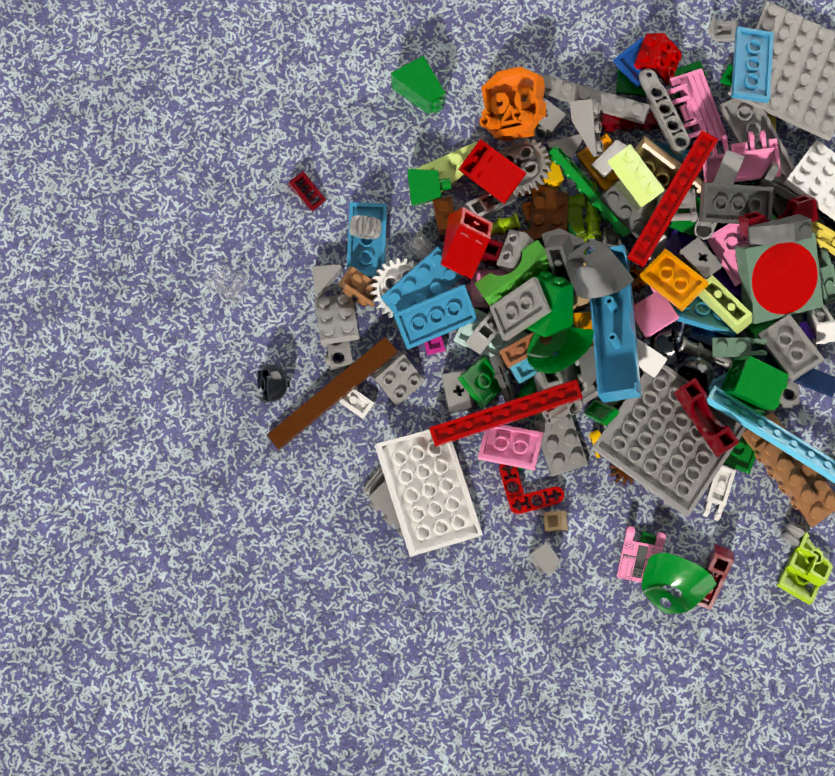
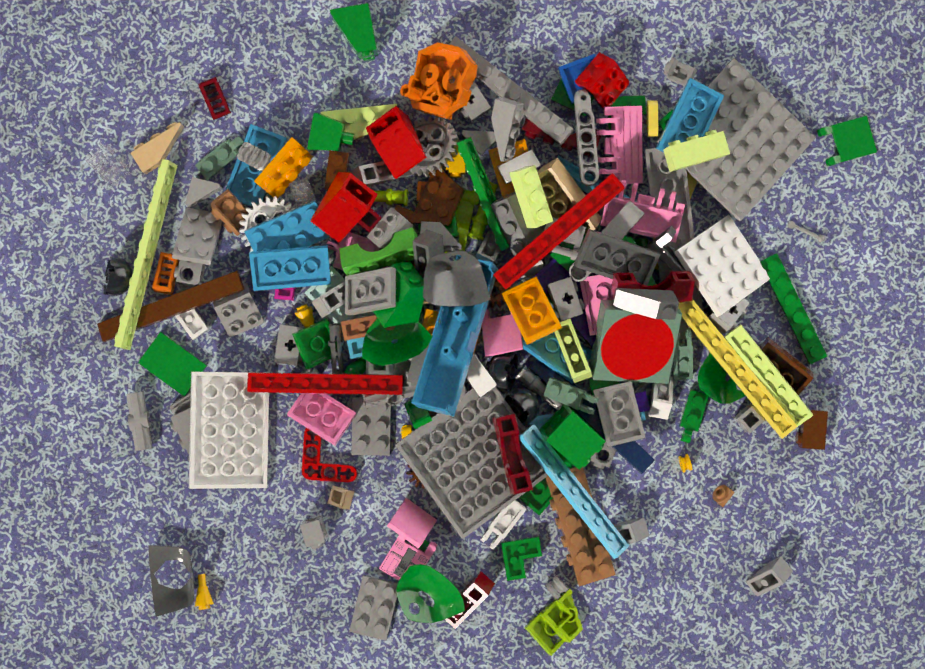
camera: 25 degrees right, 10 degrees up
(267, 258) = (150, 154): none -> tan slope
(293, 359) = (146, 253): none -> yellowish green plate
(317, 381) = (157, 279): none -> orange slope
(330, 243) = (219, 157): none -> sand green hinge
(338, 512) = (139, 421): none -> light grey piece
(350, 449) = (171, 363): none -> green tile
(395, 230) = (283, 168): none -> light orange plate
(426, 677) = (165, 598): none -> dark grey piece
(458, 663) = (203, 596): none -> yellow cone
(461, 360) = (305, 315): none -> yellow cone
(626, 616) = (374, 608): none -> light grey plate
(634, 519) = (412, 523): none -> bright pink tile
(714, 78) = (652, 118): none -> light yellow beam
(741, 517) = (514, 553): none -> green plate
(769, 84) = (696, 150): none -> yellowish green brick

